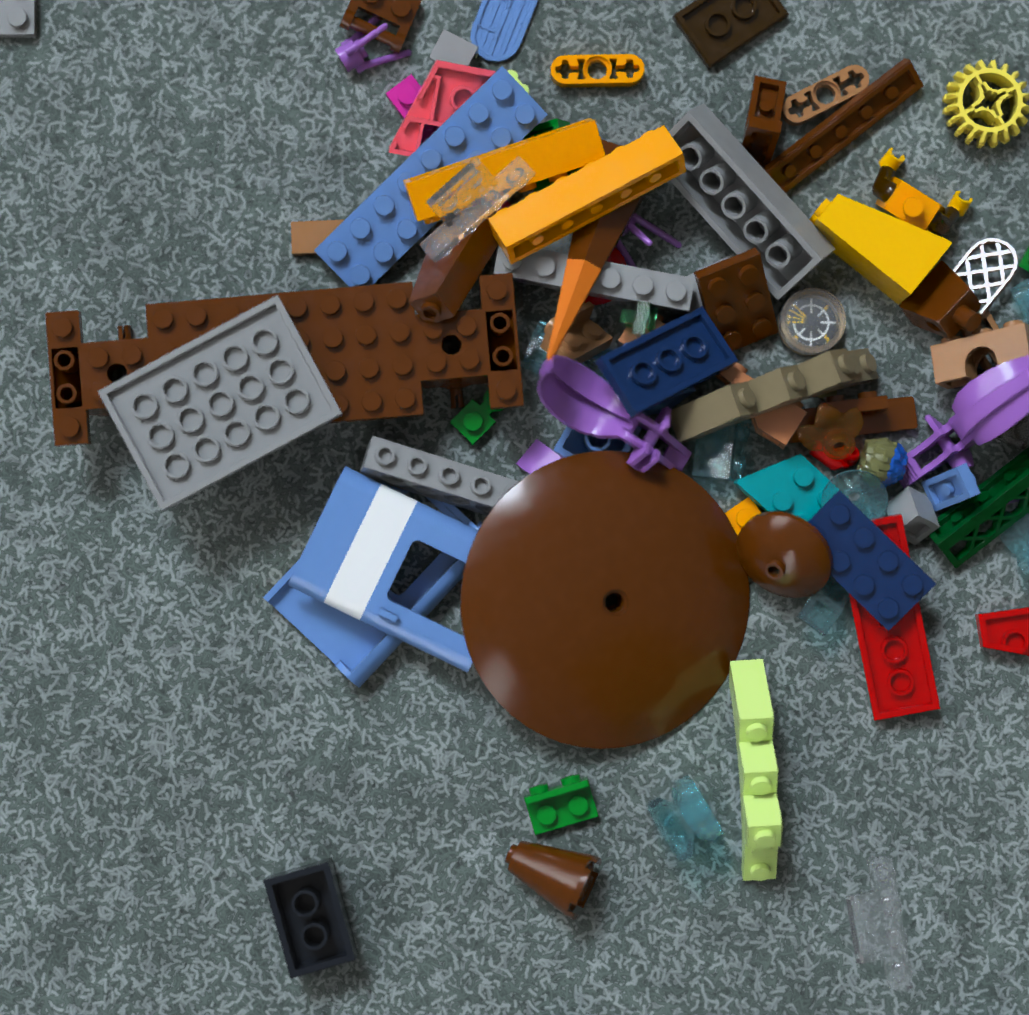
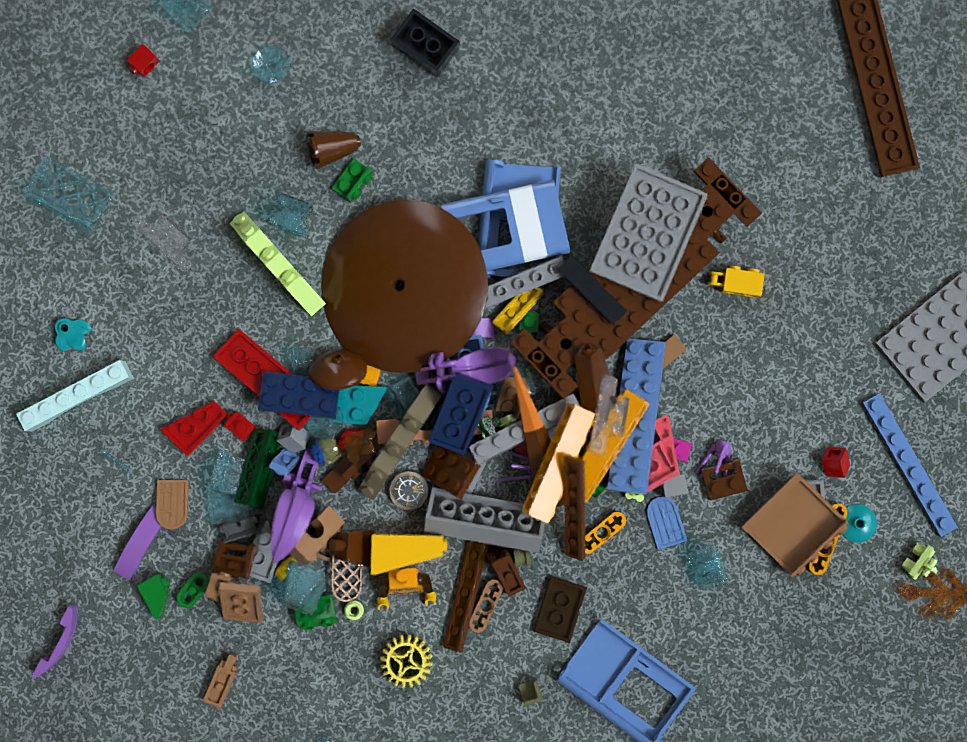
camera: 145 degrees right, 0 degrees up
(149, 253) = (738, 281): none -> yellow brick
(358, 385) = (592, 290): none -> black tile
(482, 449) = (517, 309): none -> yellow tile
(608, 311) = (506, 421): none -> yellowish green plate
(610, 121) = (574, 506): none -> reddish brown tile
(730, 117) = (521, 557): none -> olive wheel
(972, 588) = (239, 425): none -> red bracket
(1013, 220) = (349, 614): none -> yellowish green plate

